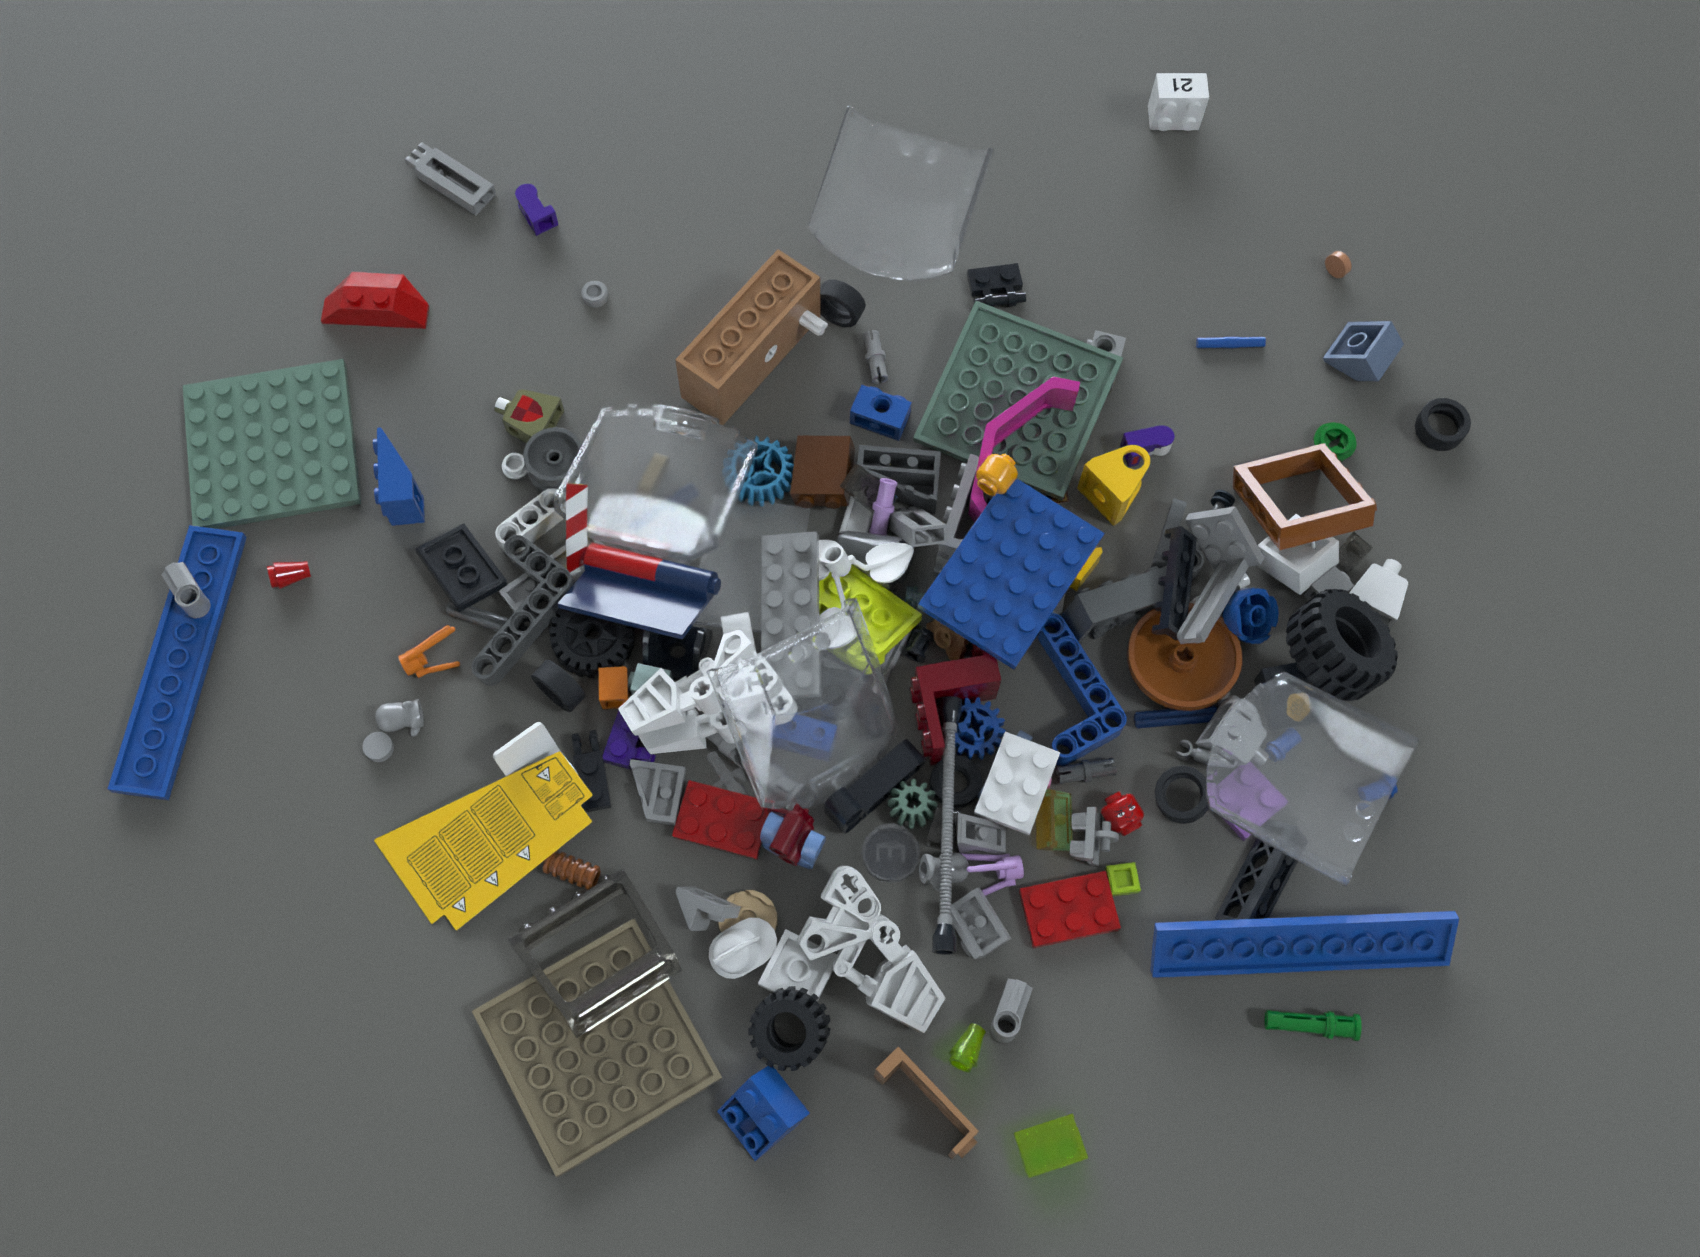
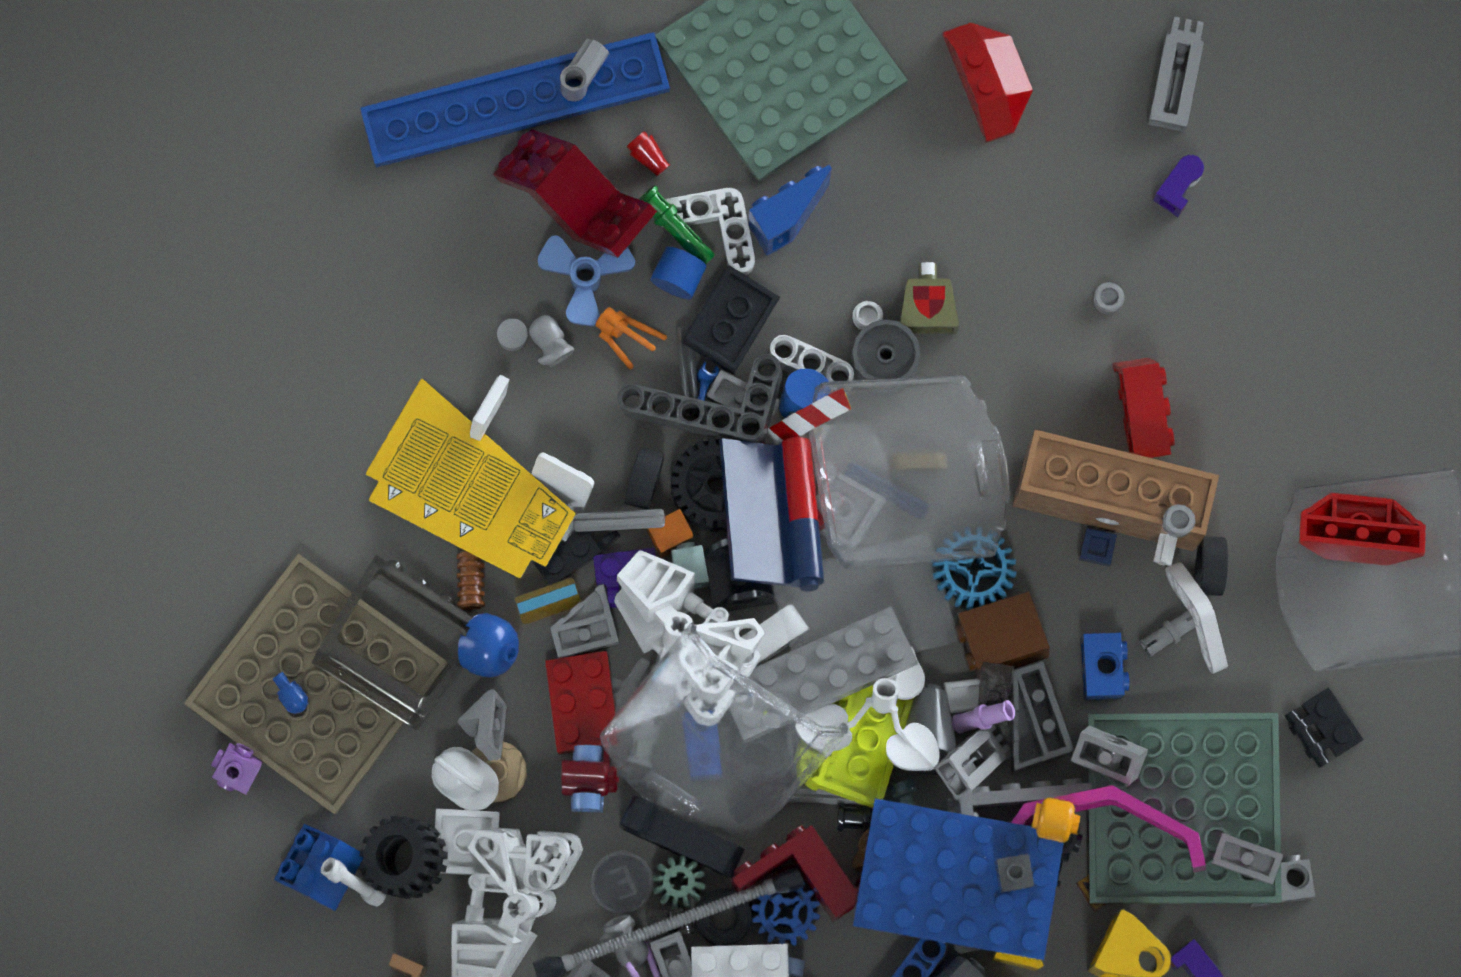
camera: 65 degrees right, 10 degrees up
(285, 638) = (574, 192): none -> dark red bracket
(335, 679) = (559, 259): none -> medium blue piece
(347, 577) = (671, 221): none -> green pin
(367, 542) = (717, 212): none -> white beam
(400, 589) = (678, 273): none -> blue piece
(430, 788) = (489, 407): none -> white tile
(498, 606) = (705, 379): none -> blue hand
(550, 533) = (799, 390): none -> blue piece
(583, 719) = (619, 520): none -> light grey axle
(596, 1070) = (291, 694): none -> blue cylinder
(621, 812) = (547, 601): none -> clear yellow slope
(639, 873) = (488, 646): none -> blue cylinder
(649, 1152) = (245, 772): none -> medium lavender brick
(688, 297) = (1145, 407): none -> red wedge
(780, 1090) = (337, 872): none -> white bar
(785, 378) = (1097, 547): none -> dark blue plate
(800, 288) = (1178, 521): none -> light grey tile
(863, 191) = (1361, 530): none -> red wedge
(871, 317) = (1202, 614): none -> white beam
(956, 427) = (1109, 755): none -> light grey brick
(1029, 517) = (1014, 873): none -> dark grey brick
(1082, 361) = (1247, 859): none -> light grey plate

